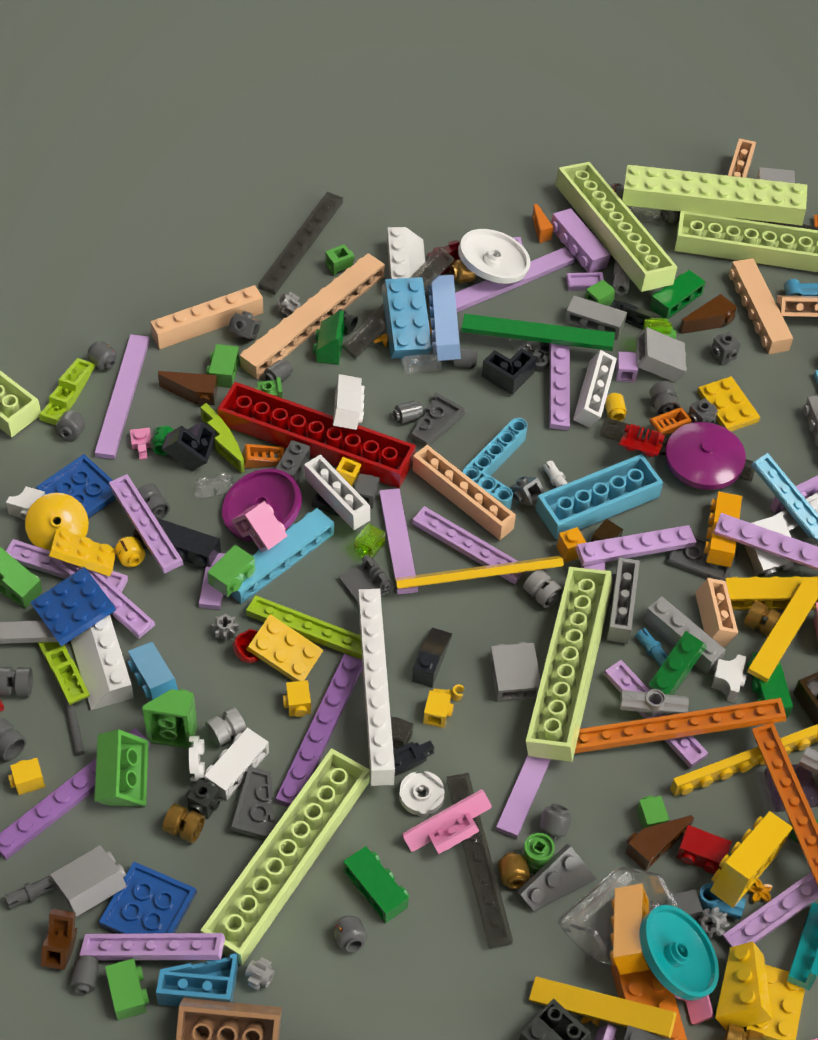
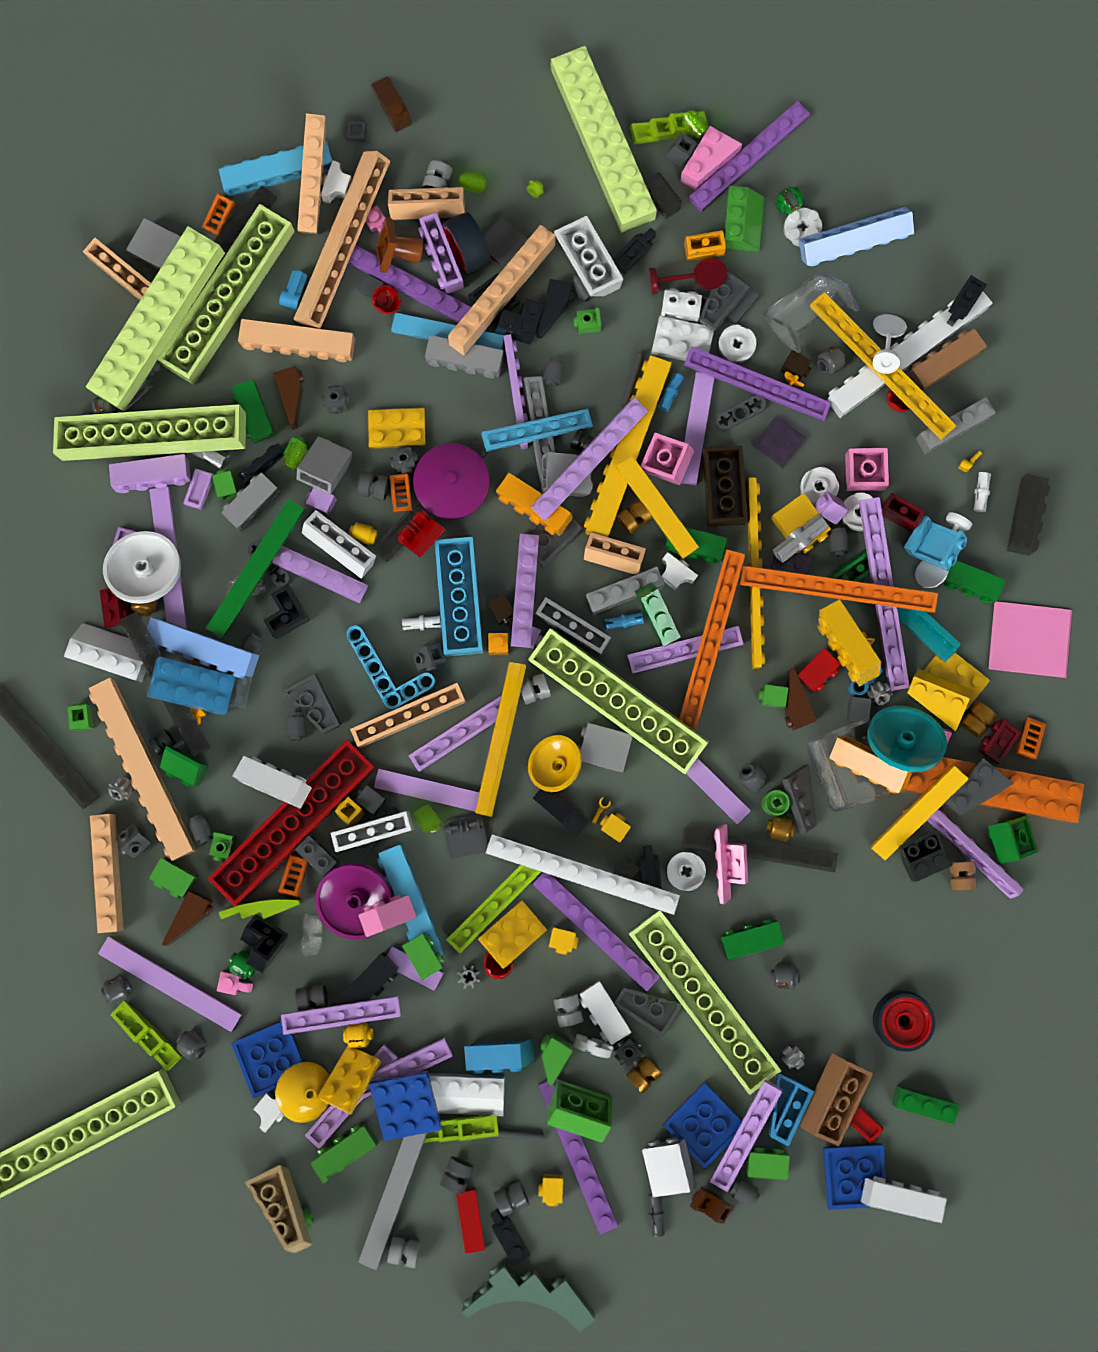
camera: 60 degrees left, 30 degrees up
(477, 628) = (546, 759): none -> yellow dish
(542, 225) = (114, 499): orange slope -> none
(642, 701) = (677, 661): light grey piece -> none

